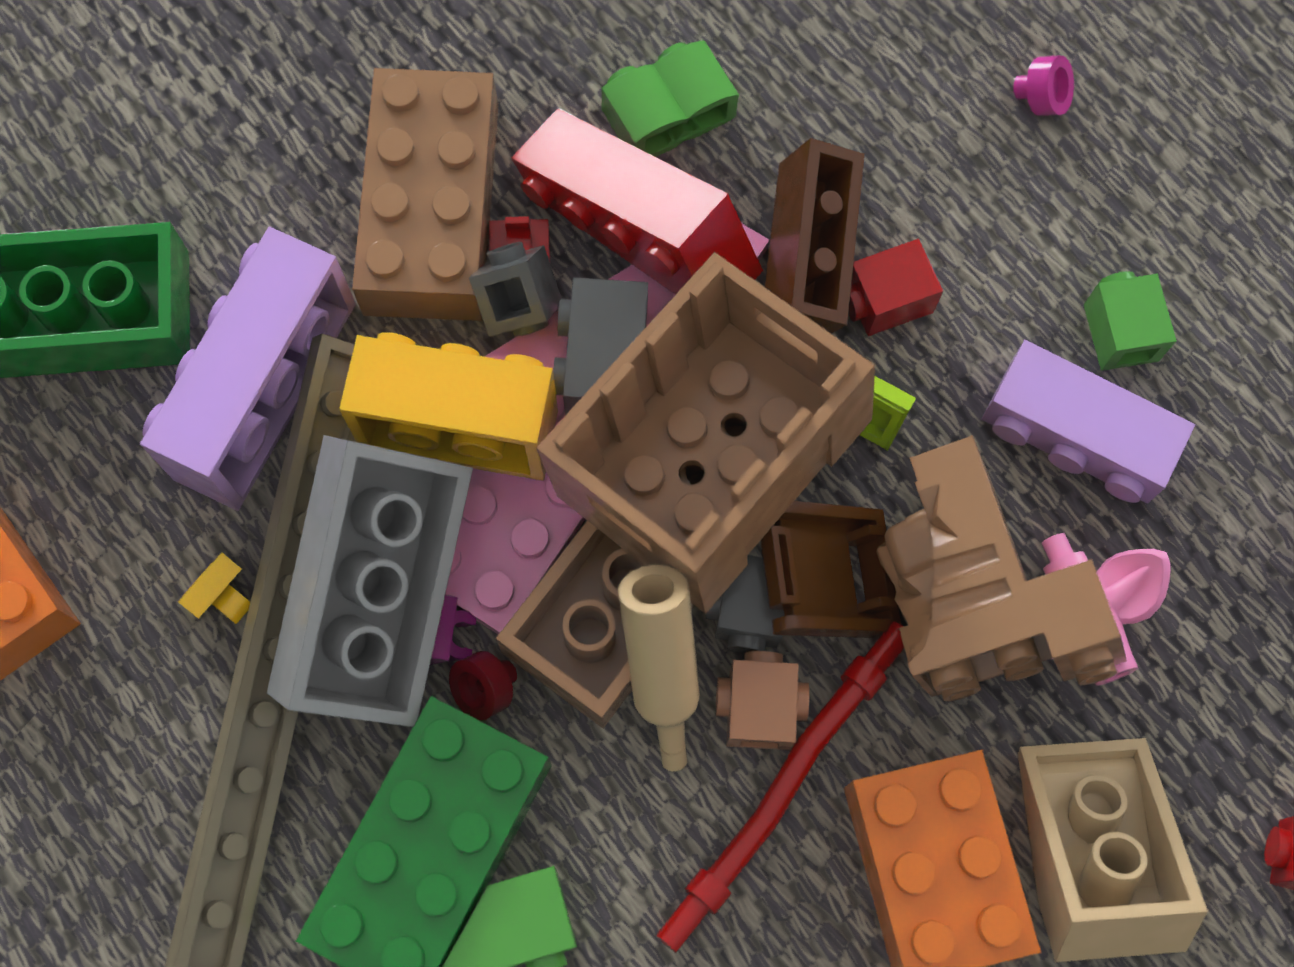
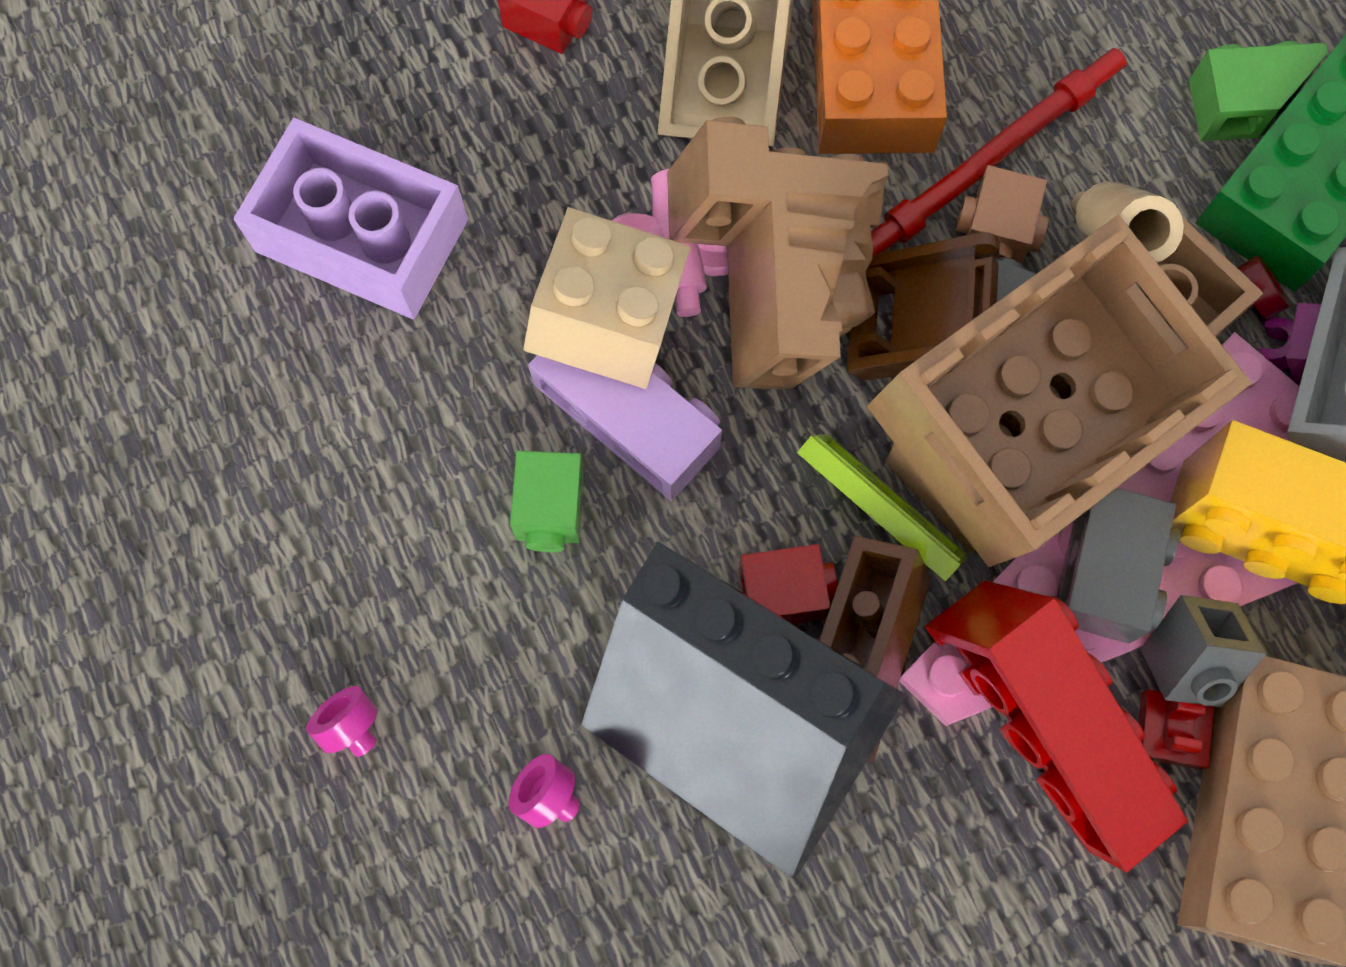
camera: 165 degrees left, 0 degrees up
(669, 100) = (987, 872): bright green brick -> none
(916, 166) = (736, 708): none -> slope
(1149, 482) = (605, 298): none -> tan brick
(1233, 104) = (344, 722): none -> dark pink tile

